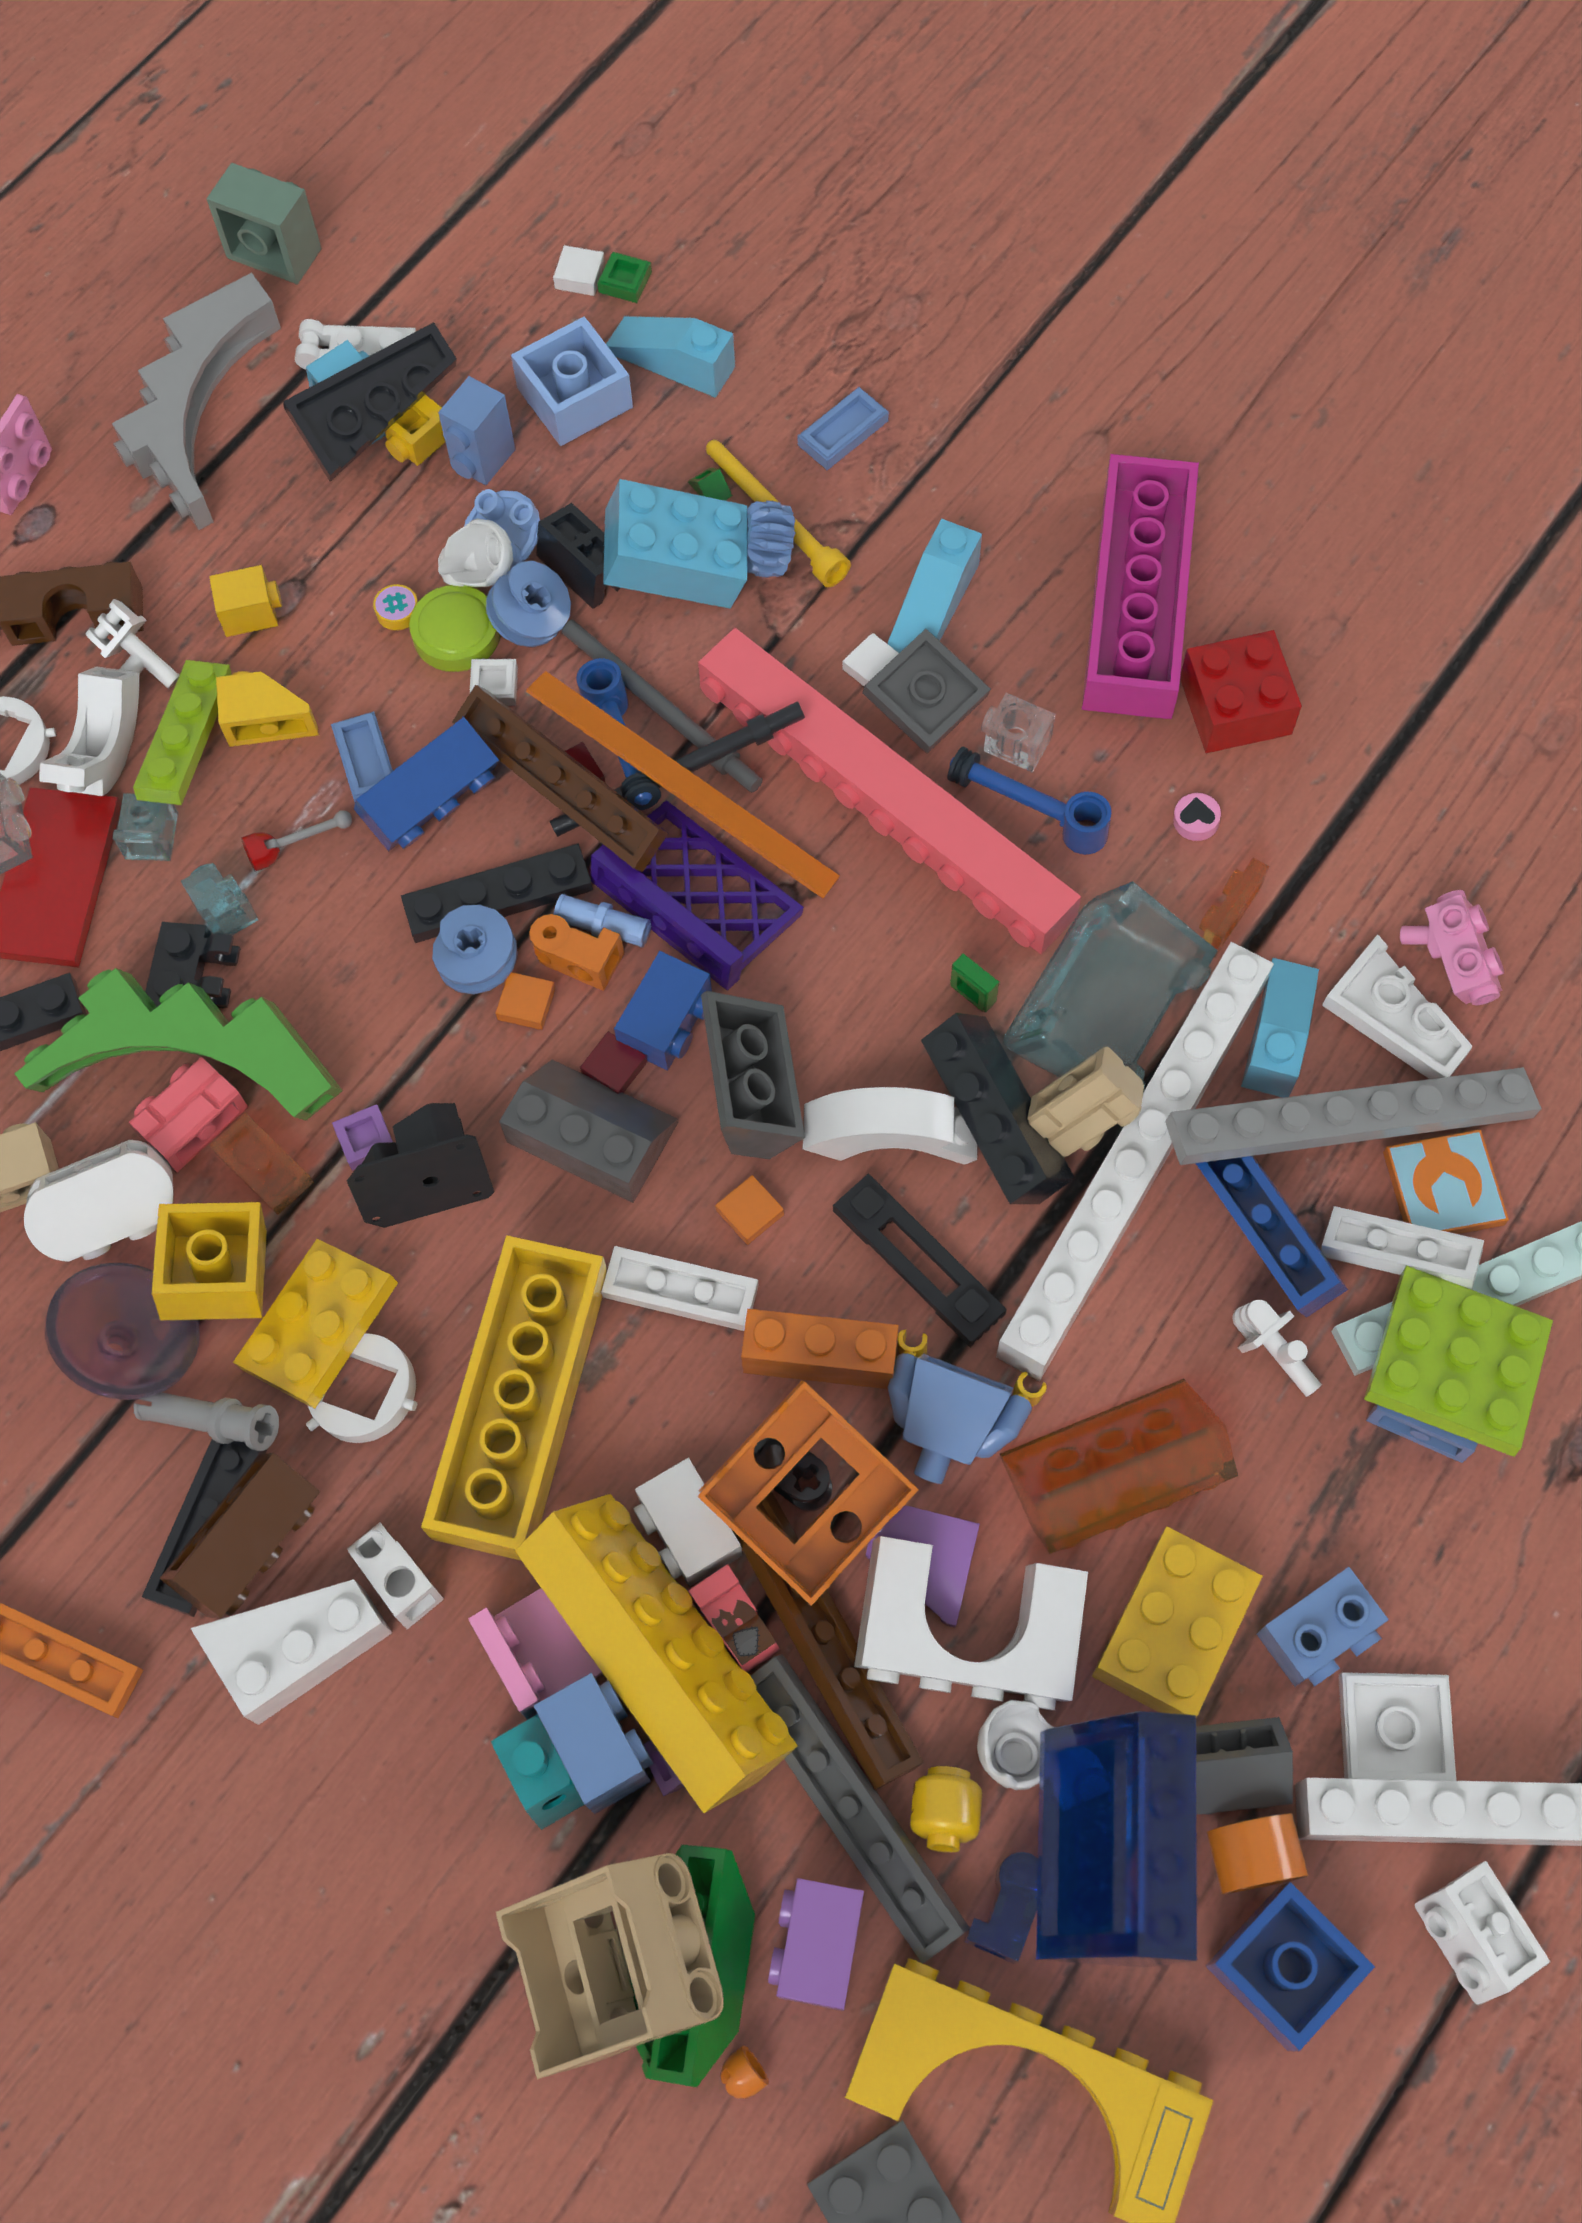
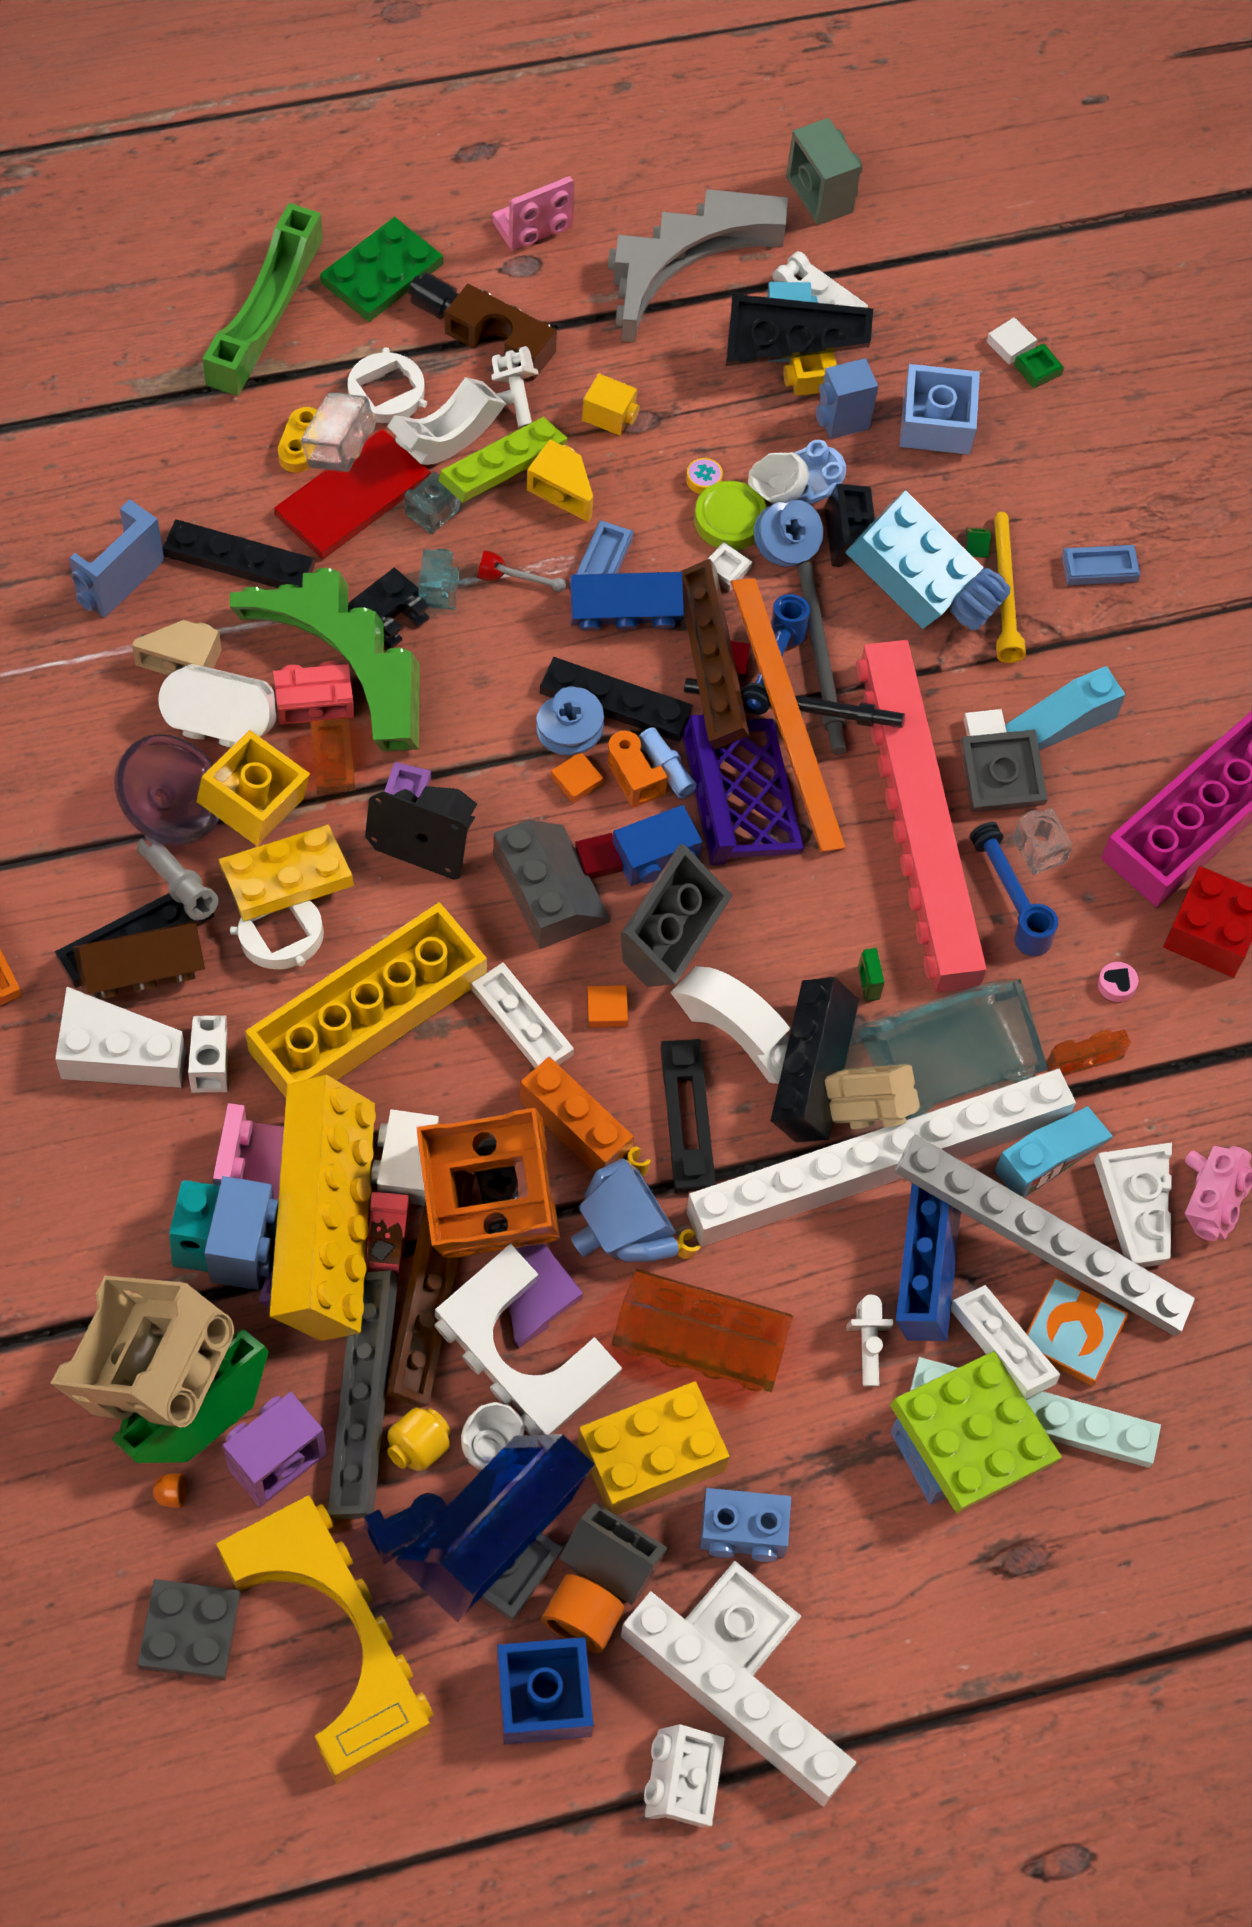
camera: 30 degrees right, 5 degrees down
(677, 349) = (1031, 437): medium azure slope -> none

